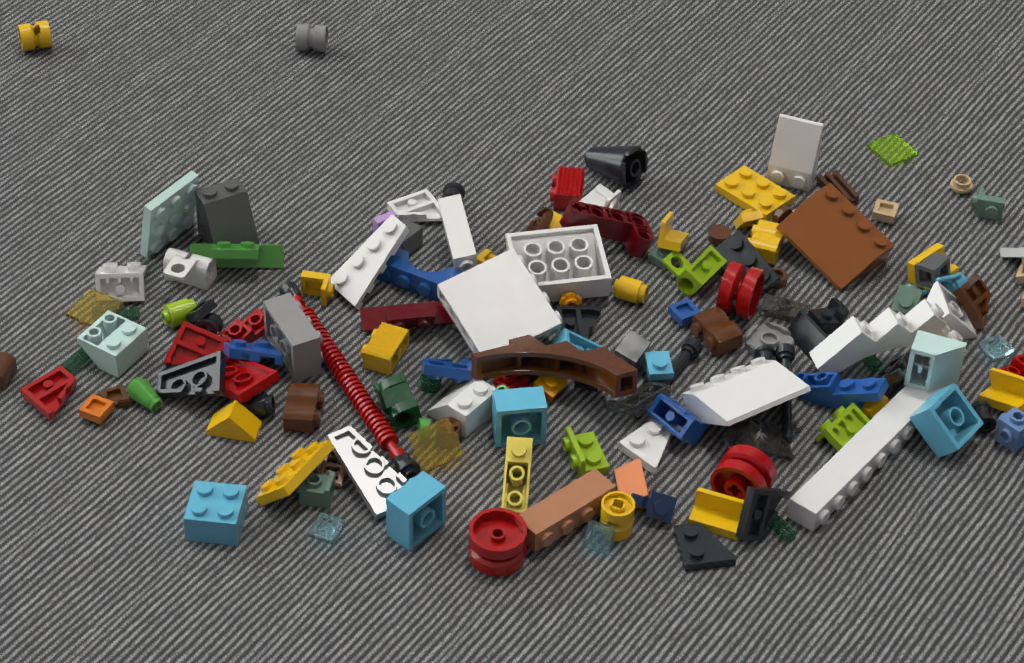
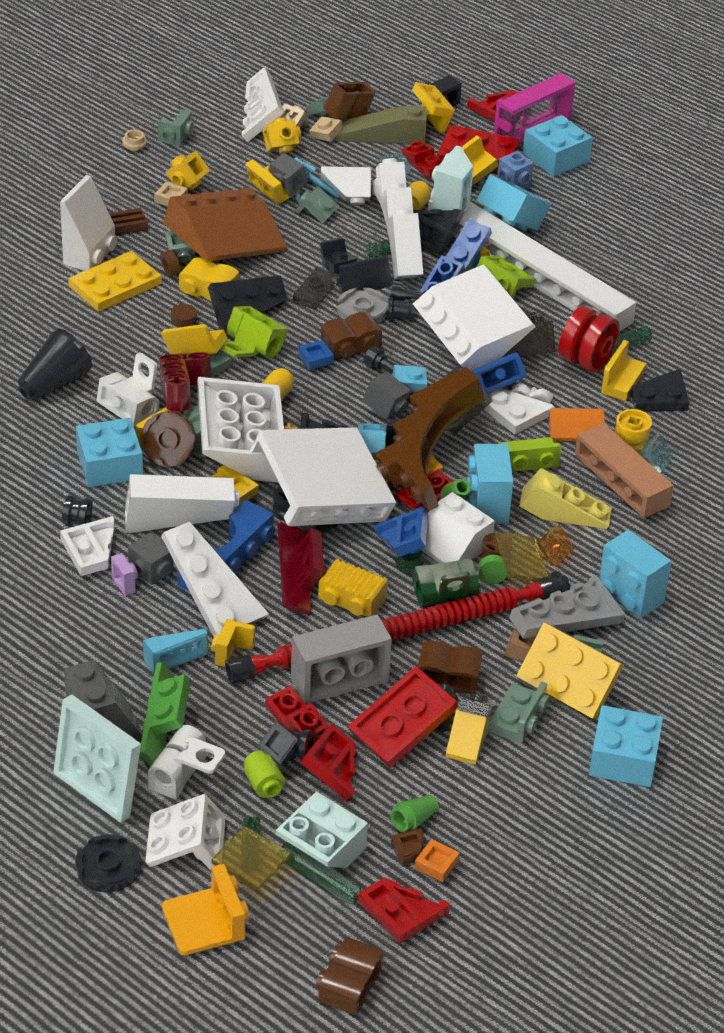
camera: 85 degrees left, 0 degrees up
(46, 295) = (207, 916): none -> light orange bracket
(100, 249) = (108, 863): none -> black tile
(195, 378) = (407, 750): black wing -> none
(250, 418) = (476, 704): none -> clear smoke plate
(252, 351) = (356, 699): blue wing -> none
(258, 453) = (519, 712): none -> sand green bracket
(303, 254) = (167, 648): none -> medium azure slope
(327, 528) = (643, 657): clear light blue plate -> none
(459, 468) = (555, 545): none -> clear orange plate
(497, 541) = (673, 520): red wheel -> none
(519, 202) = (108, 451): none -> medium azure brick
(568, 186) = (81, 409): red brick -> none
(657, 506) = (613, 404): dark blue plate -> none
(670, 454) = (540, 394): none -> white piece
(740, 290) = (305, 301): red wheel -> none
(748, 218) = (170, 286): yellow plate -> none
(759, 511) = (636, 335): black wing -> none
(892, 150) = (57, 177): clear neon green piece -> none
(910, 206) = (187, 170): none -> yellow brick
(974, 299) = (317, 159): reddish brown wing -> none
(1000, 266) = (281, 135): none -> yellow brick

